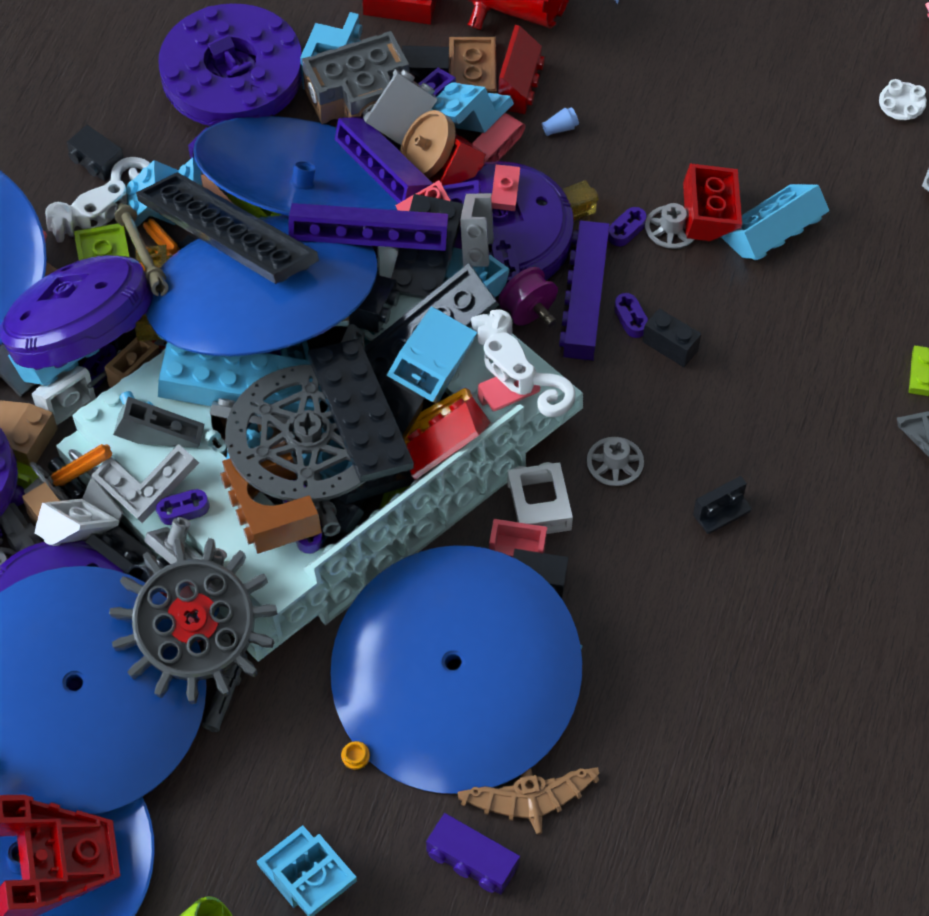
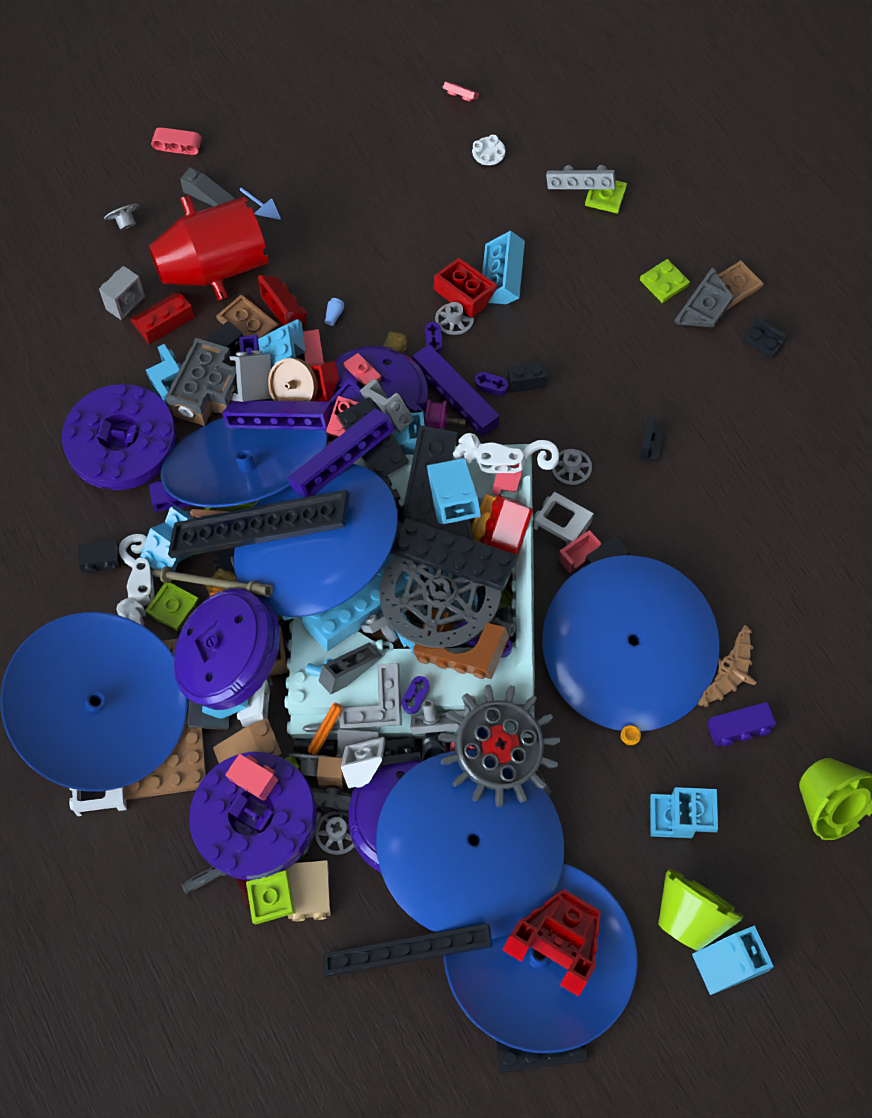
camera: 45 degrees left, 5 degrees up
(160, 236) = (200, 568): orange axle -> none

